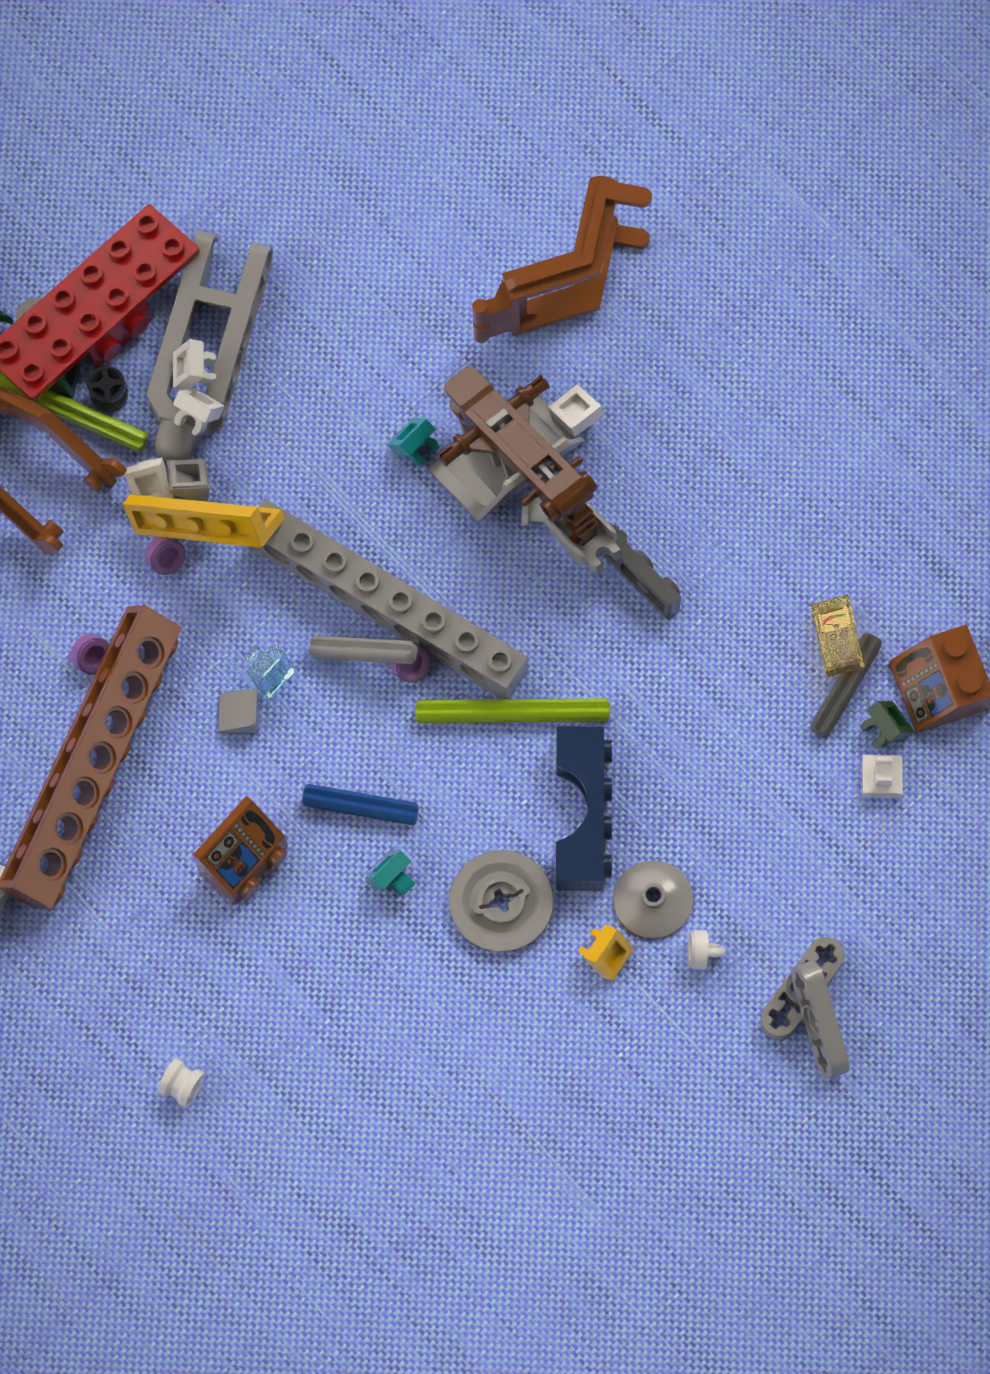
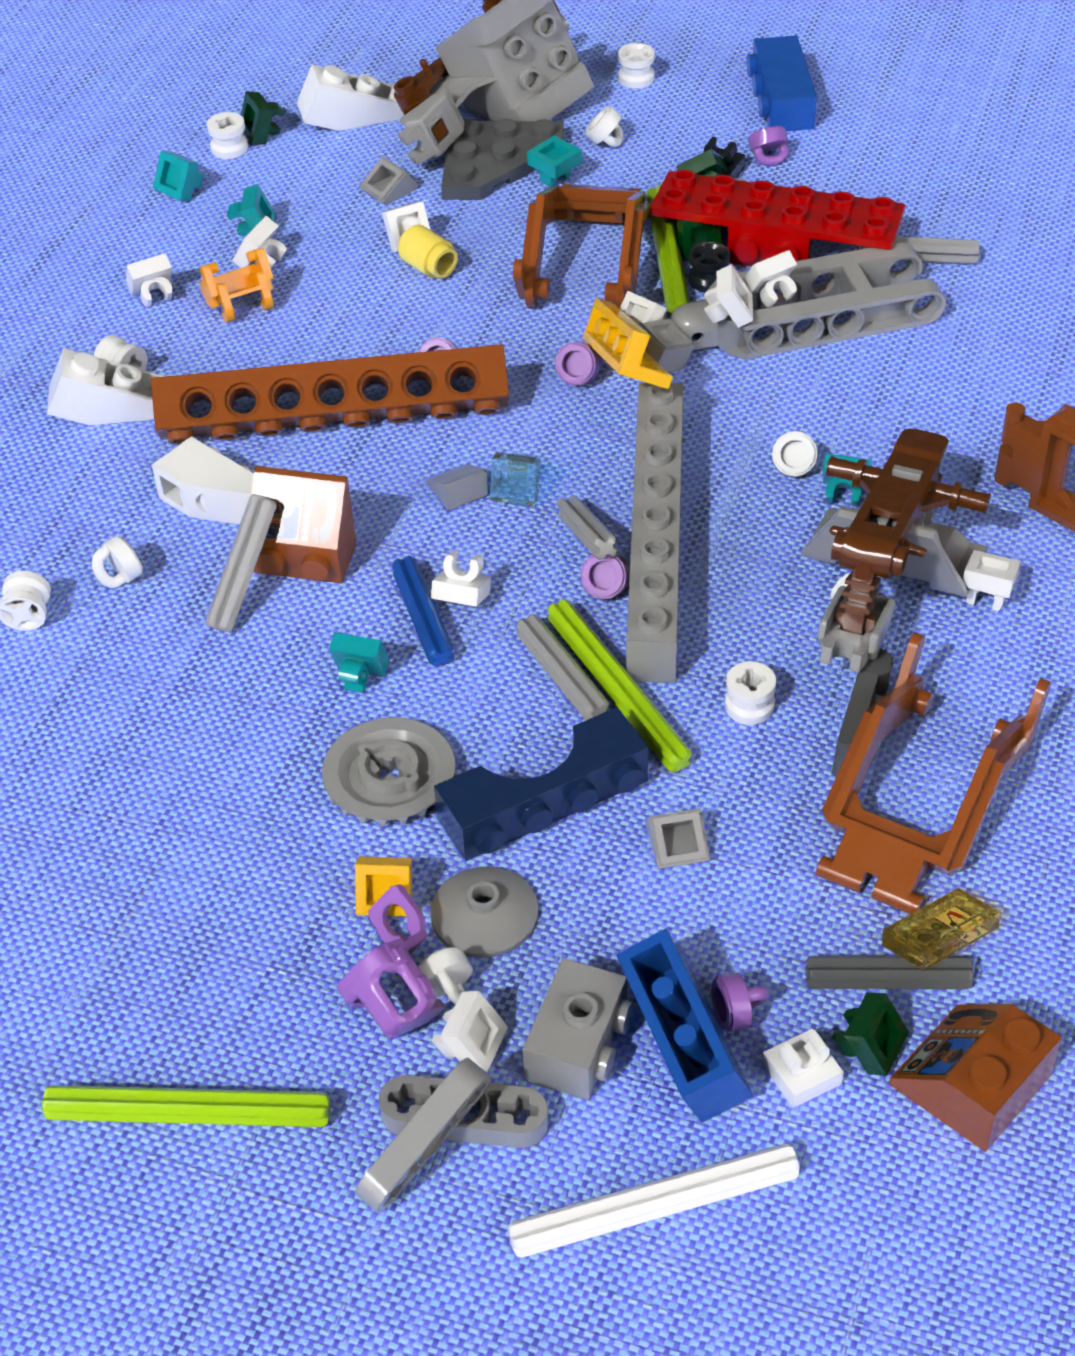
camera: 60 degrees right, 25 degrees down
(134, 895) = (203, 482): none -> white slope
(179, 993) = (121, 559): none -> white tile
(199, 203) = (942, 250): none -> light grey axle
(256, 910) = (241, 563): none -> light grey axle
(358, 766) = (459, 585): none -> white tile
(367, 460) = (795, 453): none -> white tile
(475, 739) = (561, 667): none -> light grey axle
(576, 639) = (750, 693): none -> white wheel
(667, 747) = (678, 838): none -> light grey slope
(685, 981) = (362, 983): none -> medium lavender piece
(704, 1152) = (186, 1106): none -> lime axle
(755, 954) = (471, 1030): none -> white tile
(760, 627) = (891, 850): none -> dark orange piece
(788, 890) = (576, 1029): none -> light grey brick
(820, 787) = (735, 1001): none -> medium lavender tile
(828, 828) = (684, 1026): none -> blue brick
(923, 912) = (653, 1200): none -> white axle

